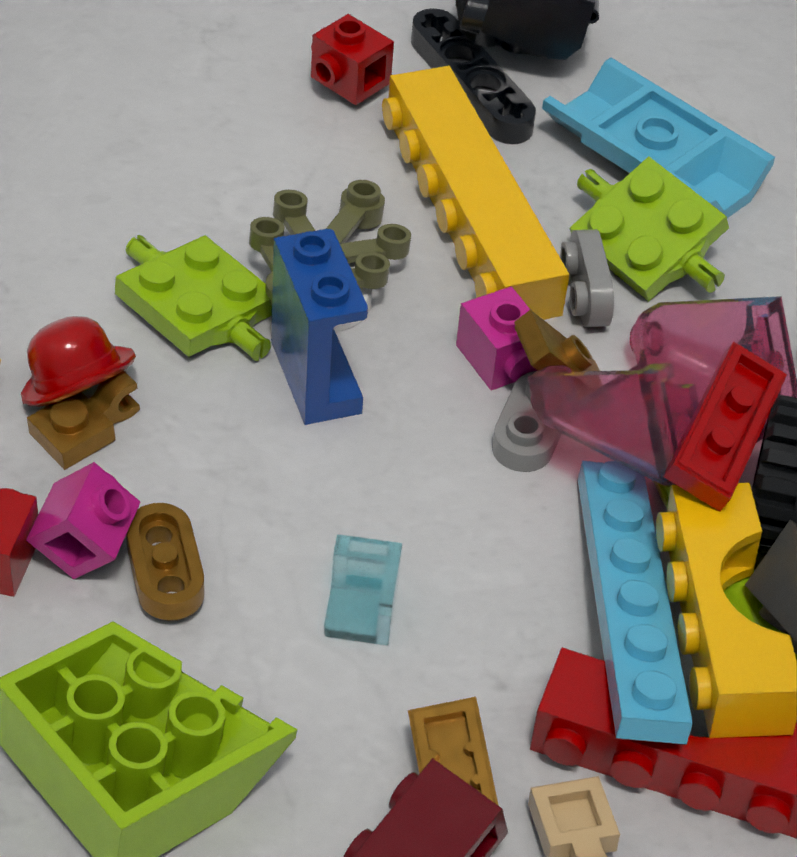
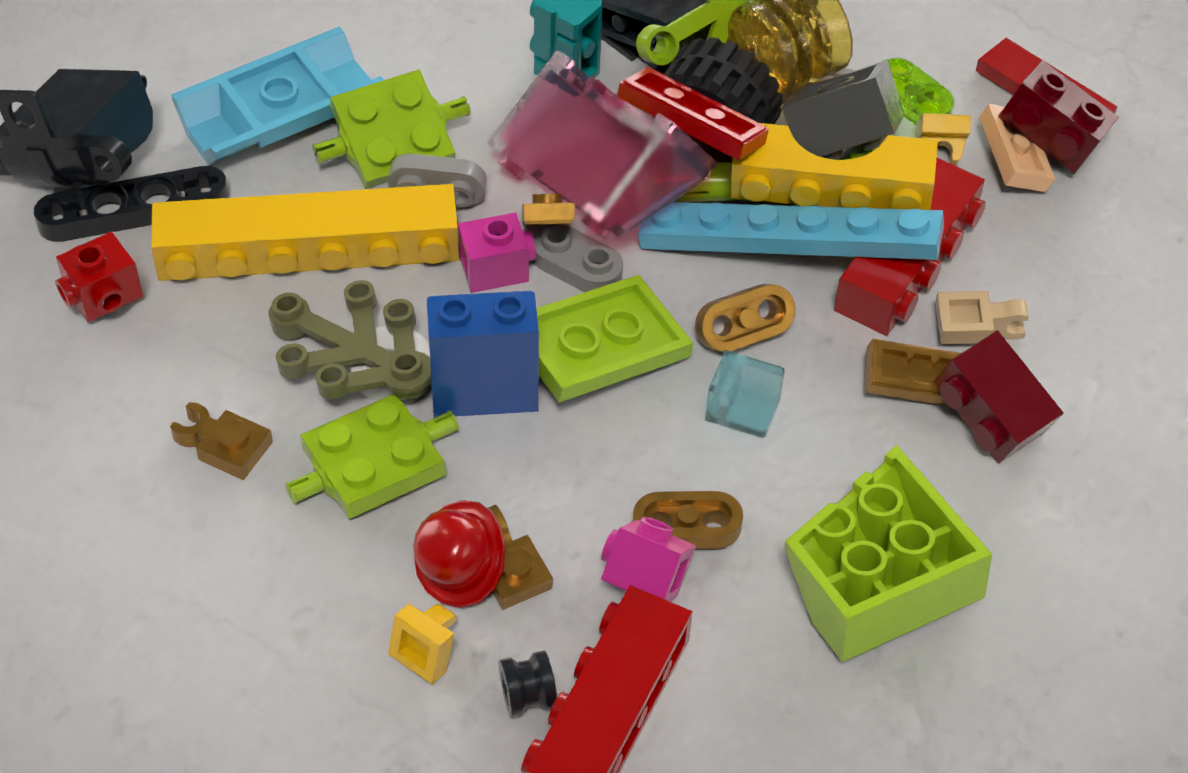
camera: 75 degrees left, 5 degrees up
(191, 194) = (225, 443): none -> pearl gold plate
(403, 443) = (606, 338): none -> lime plate
(488, 581) = (742, 317): none -> pearl gold plate

